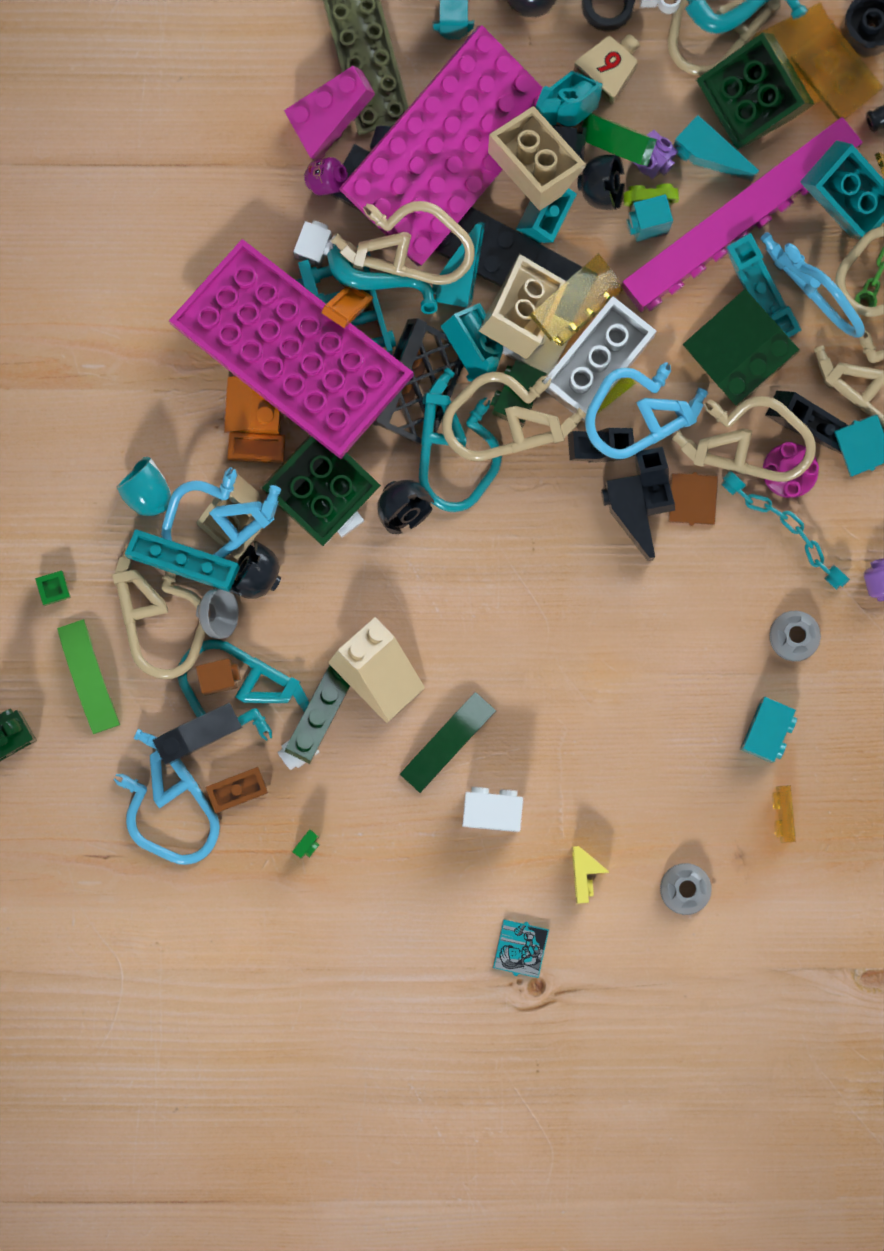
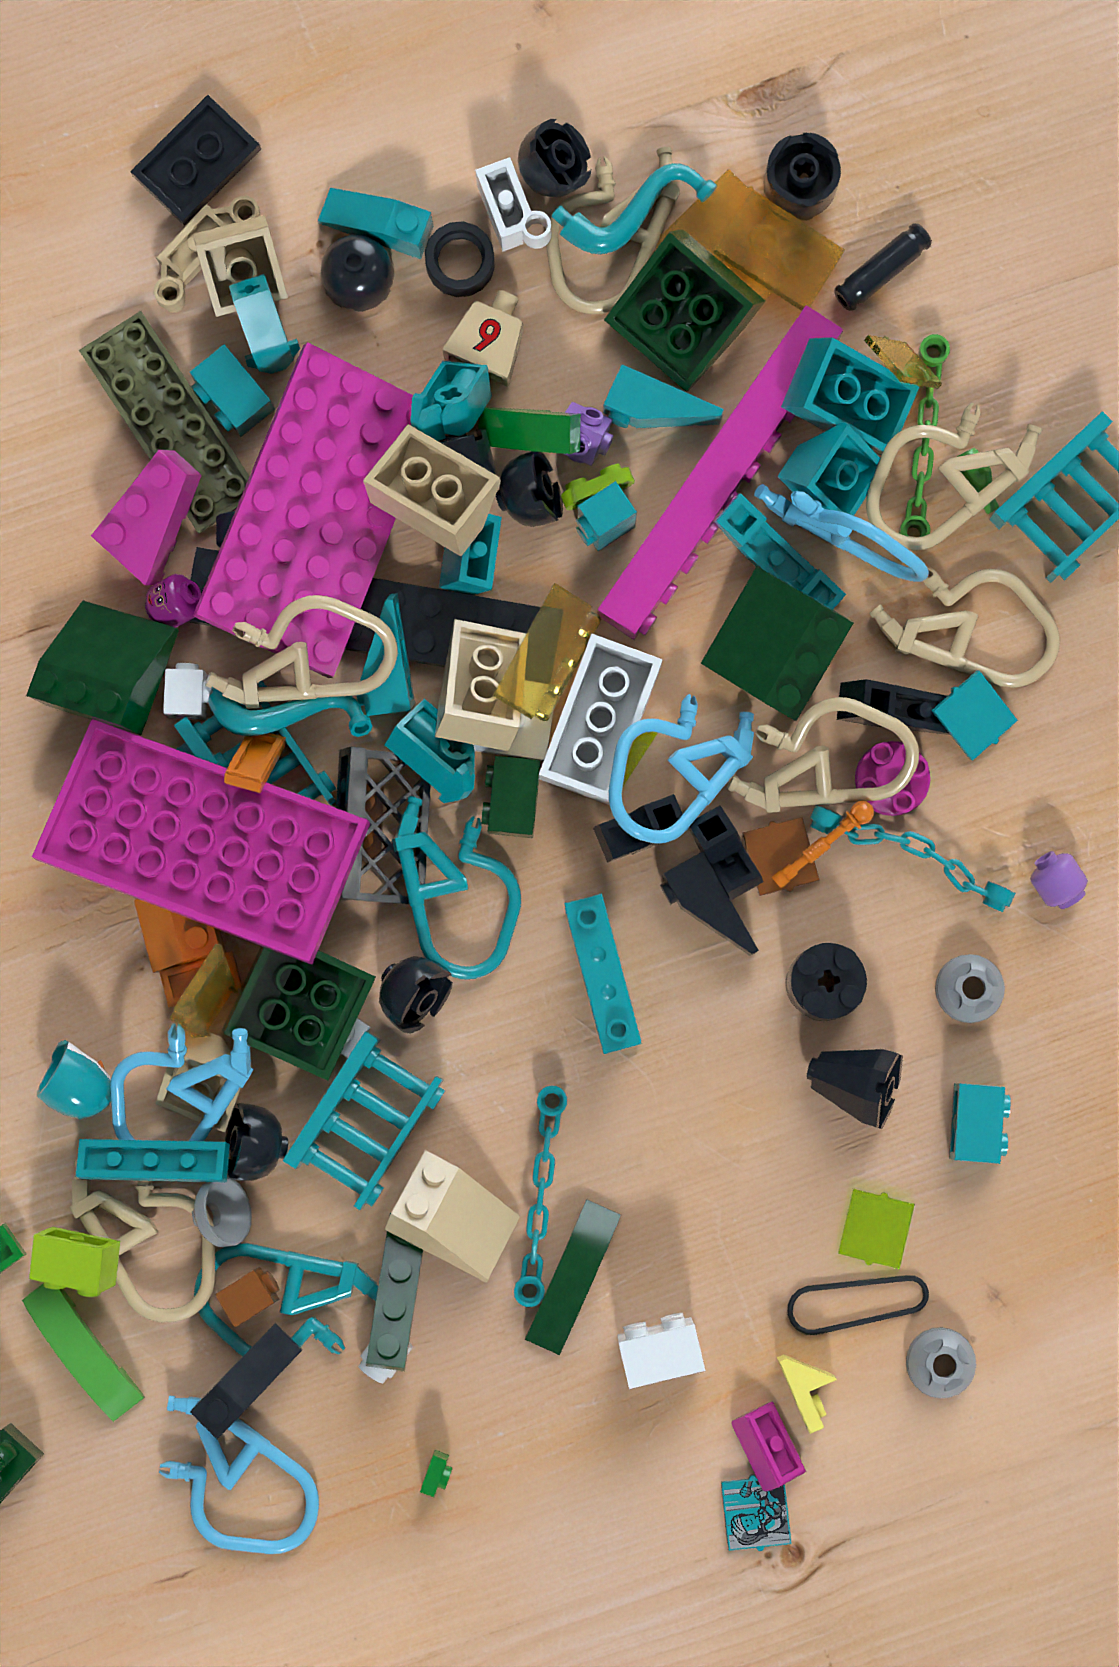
camera: 10 degrees left, 0 degrees up
(104, 611) = (74, 1261): none -> lime brick
(236, 790) = (322, 1432): dark orange plate -> none
(258, 456) = (205, 995): none -> clear yellow slope
(262, 206) = (104, 666): none -> dark green slope
(334, 556) = (327, 1119): none -> teal fence
(415, 41) = (231, 390): none -> teal brick
(441, 684) = (539, 1207): none -> teal piece
(540, 536) = (602, 974): none -> teal fence
(544, 905) = (768, 1447): none -> dark pink slope
(557, 433) = (515, 828): tan piece -> none
(644, 842) = (853, 1284): none -> black piece
(672, 780) = (876, 1228): none -> clear neon green piece
(695, 672) = (858, 1082): none -> black cone
(707, 585) = (838, 963): none -> black brick
(759, 486) = (860, 814): none -> orange piece
(785, 825) = (1041, 1239): clear yellow plate -> none
(821, 237) = (832, 469): none -> teal slope

